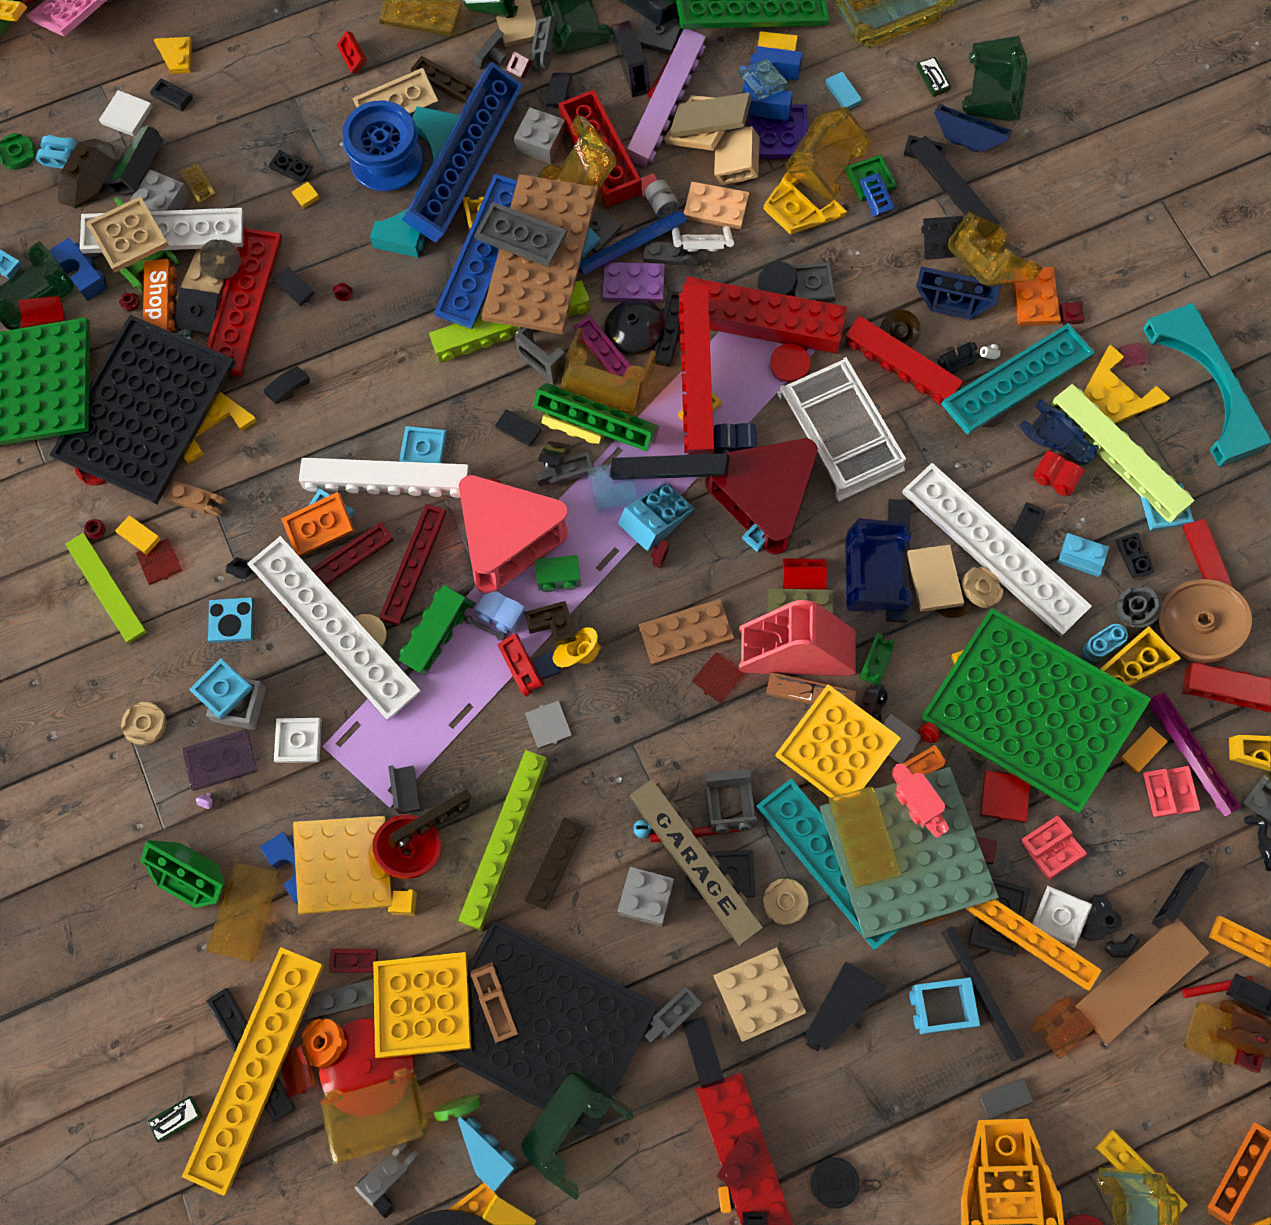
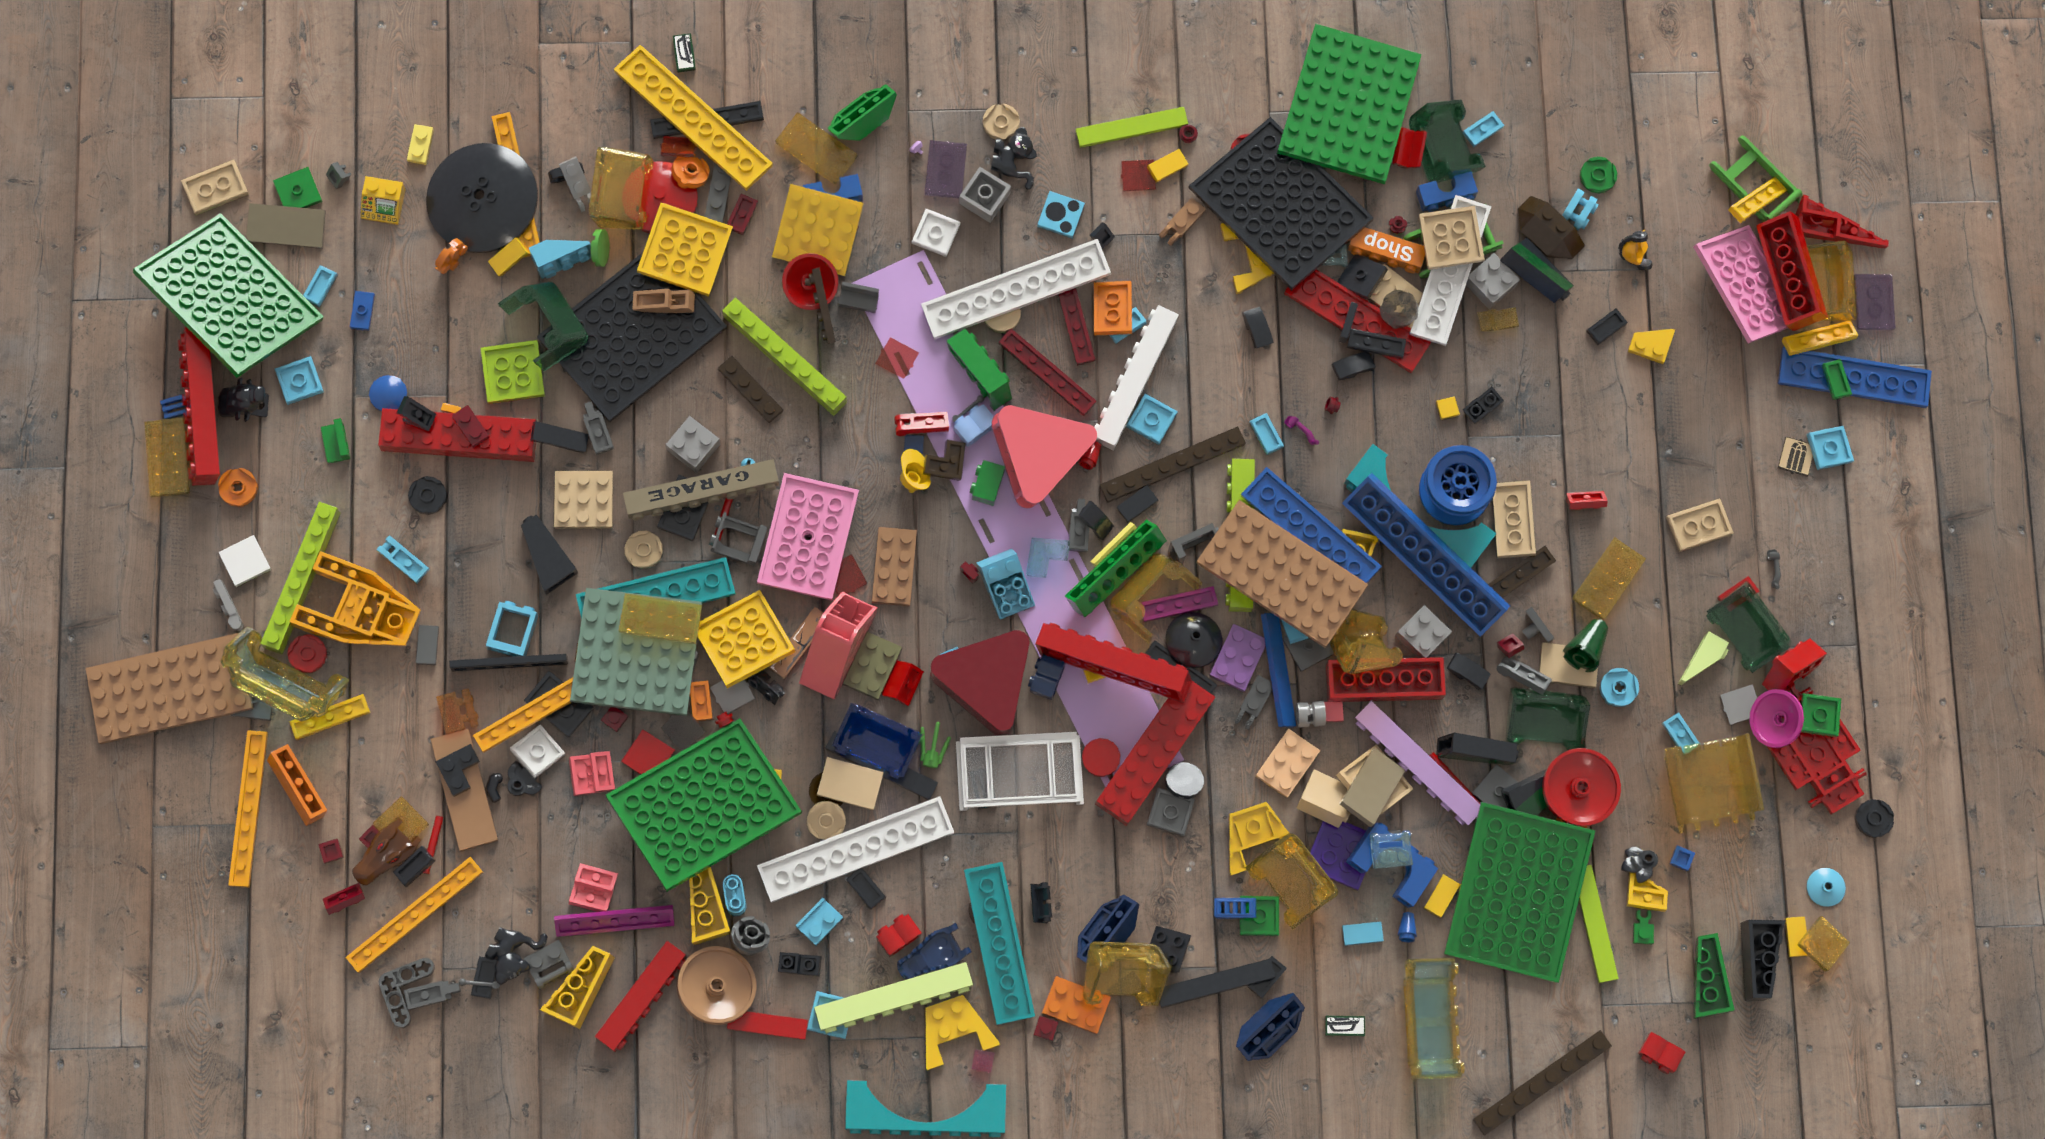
camera: 100 degrees right, 5 degrees up
(85, 92) = (1634, 248): none -> cap
(126, 113) = (1601, 280): white tile -> none
(168, 691) = (1018, 147): none -> black animal
(221, 688) = (996, 184): medium azure tile -> none
(251, 300) = (1348, 322): none -> black tile
(263, 271) = (1376, 343): none -> black tile
(375, 321) = (1294, 421): none -> magenta piece
(396, 339) = (1266, 434): none -> medium azure tile
(403, 903) = (769, 265): yellow panel -> none
(456, 723) = (897, 358): none -> clear red piece
(463, 412) = (1172, 464): none -> dark brown plate
(521, 234) = (1300, 558): dark grey plate -> none
(548, 724) = (864, 428): light grey piece -> none
(646, 1147) = (512, 372): none -> lime plate
(670, 466) = (1038, 604): black tile -> none
(709, 242) = (1247, 729): white plate -> none
(722, 709) = (804, 511): none -> bright pink piece
(820, 57) = (1407, 928): none -> blue cone
(865, 512) = (932, 759): none -> bright green plant
(877, 660) = (802, 706): green hinge -> none
(902, 318) = (1090, 864): dark brown dish -> none
(902, 360) = (1059, 853): red brick -> none
(921, 800) = (668, 673): coral hinge -> none
(923, 1175) = (403, 559): none -> medium azure plate
(990, 352) = (1034, 935): white arm -> none
(998, 79) = (1309, 1079): clear green windscreen -> none
(1126, 1001) = (453, 766): none -> black plate
(1143, 749) = (636, 884): light orange tile -> none
(1180, 895) = (510, 845): black tile -> none

